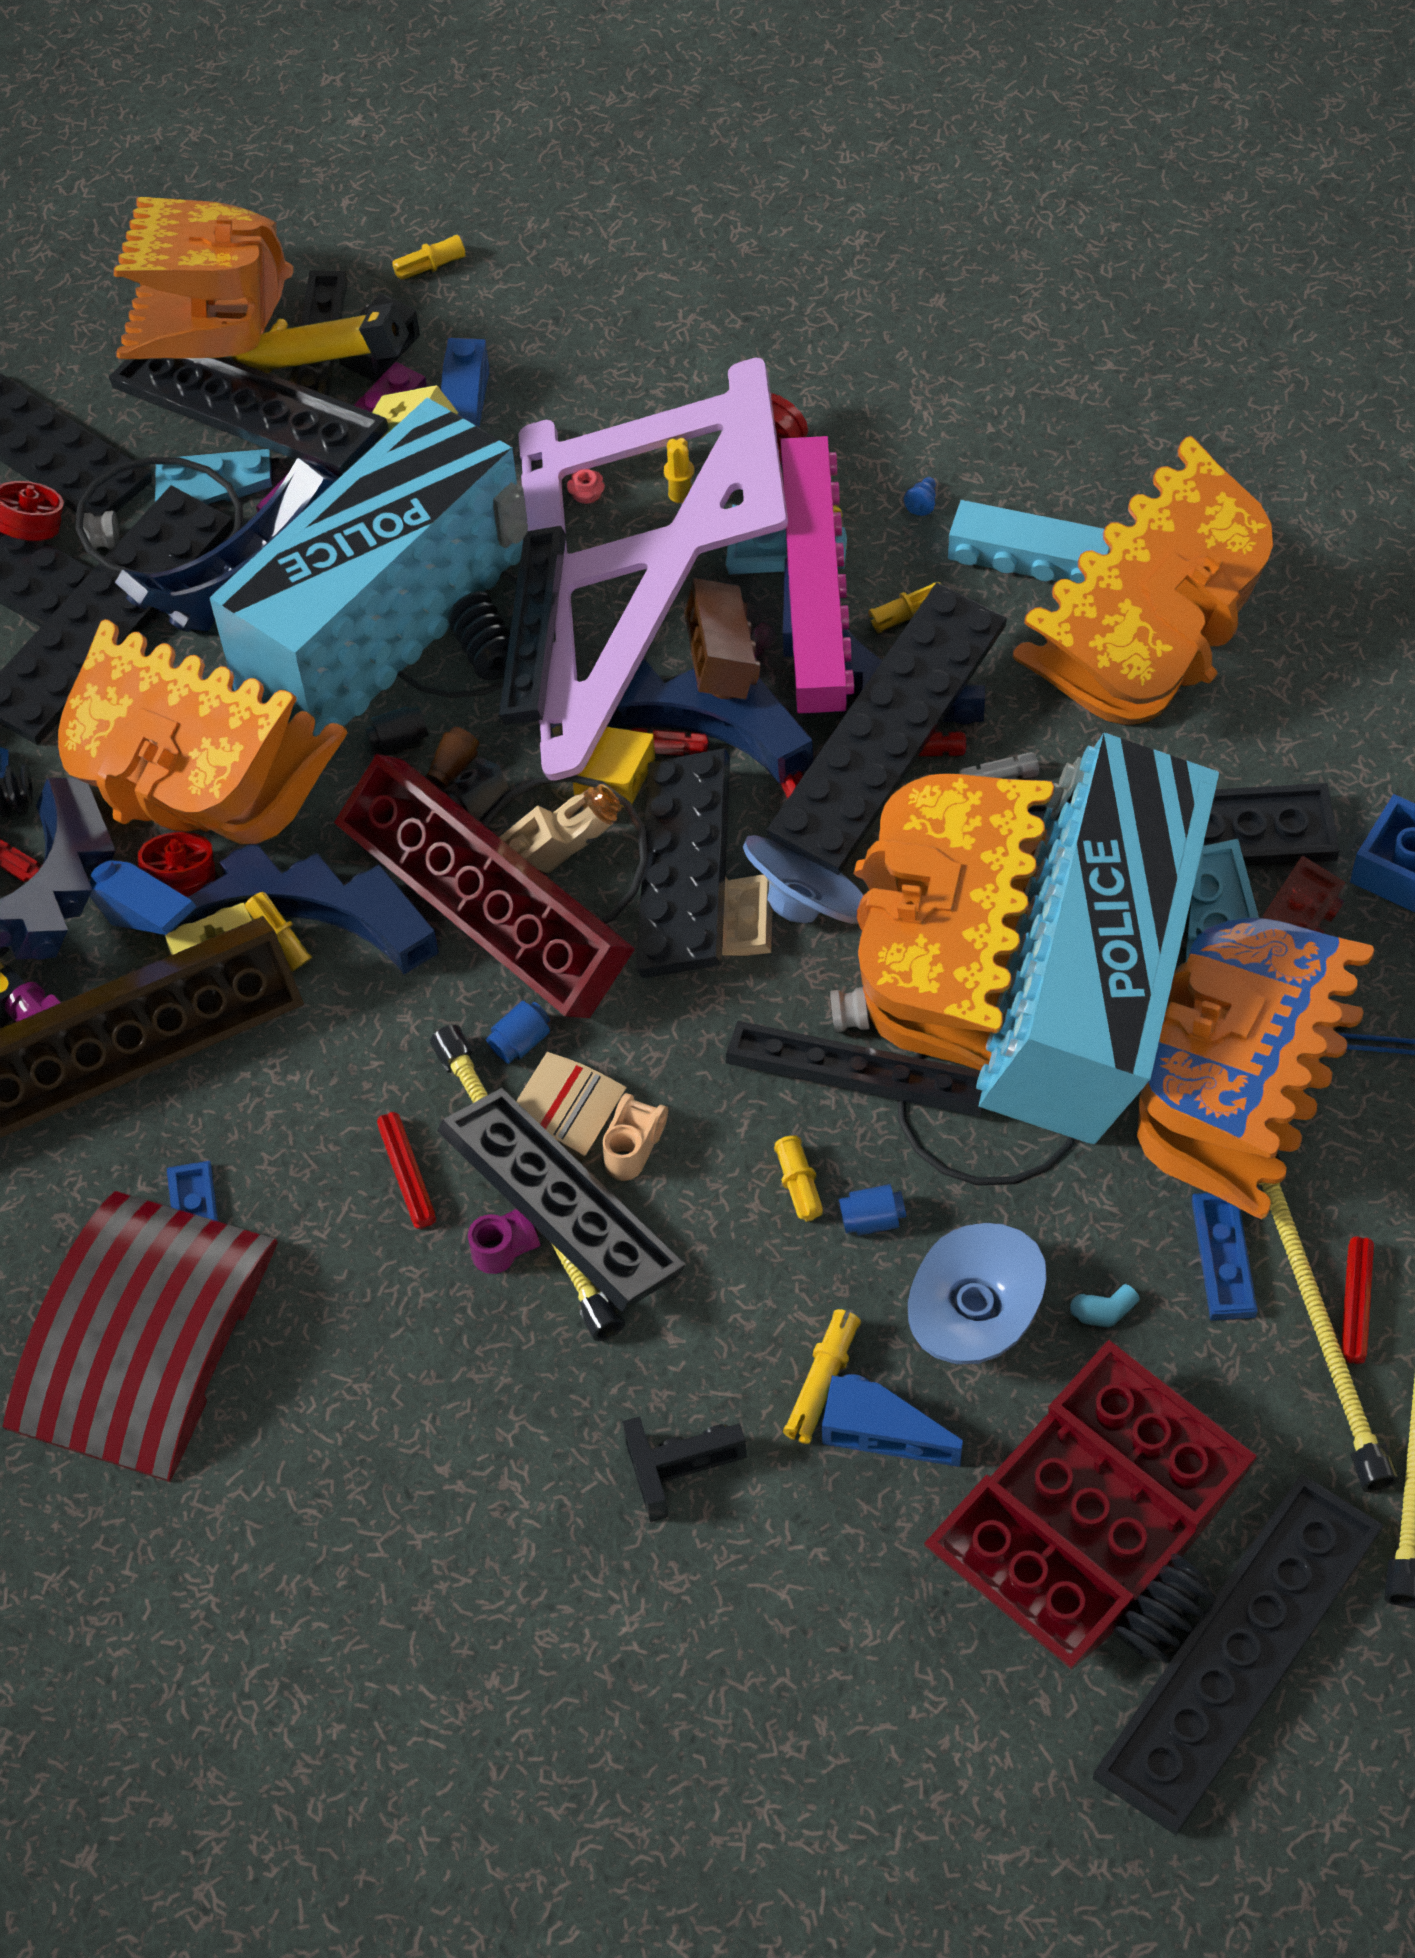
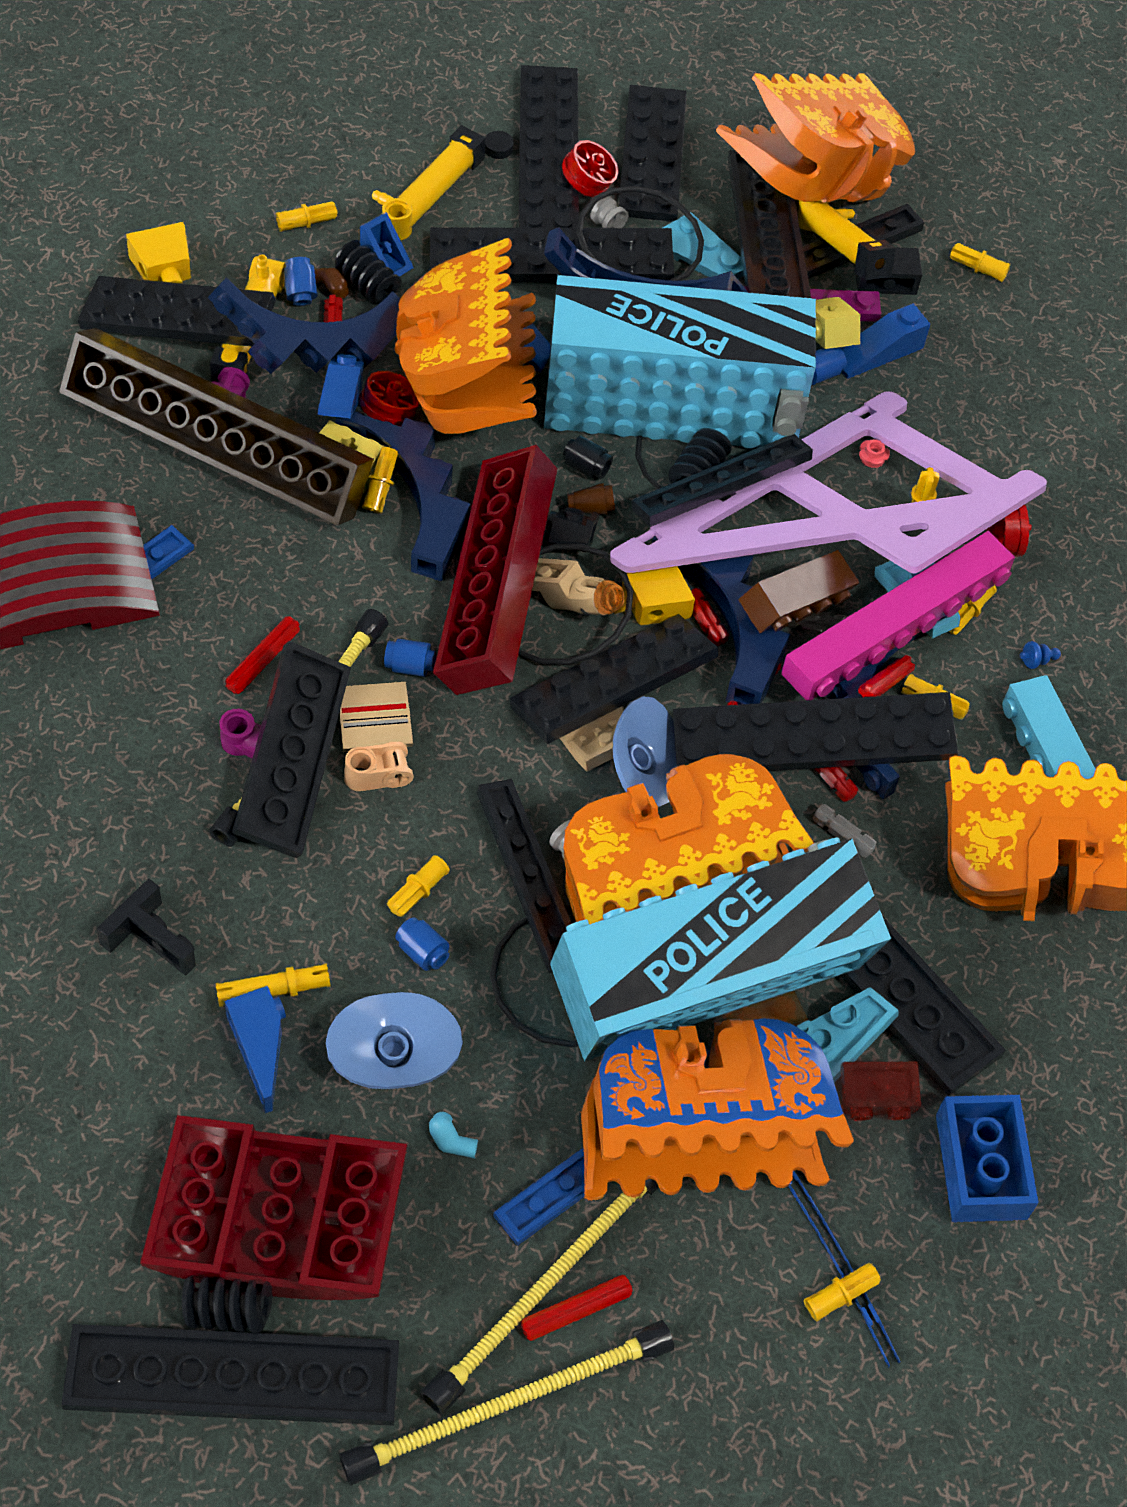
camera: 45 degrees right, 0 degrees up
(867, 631) = (887, 677): none -> red axle

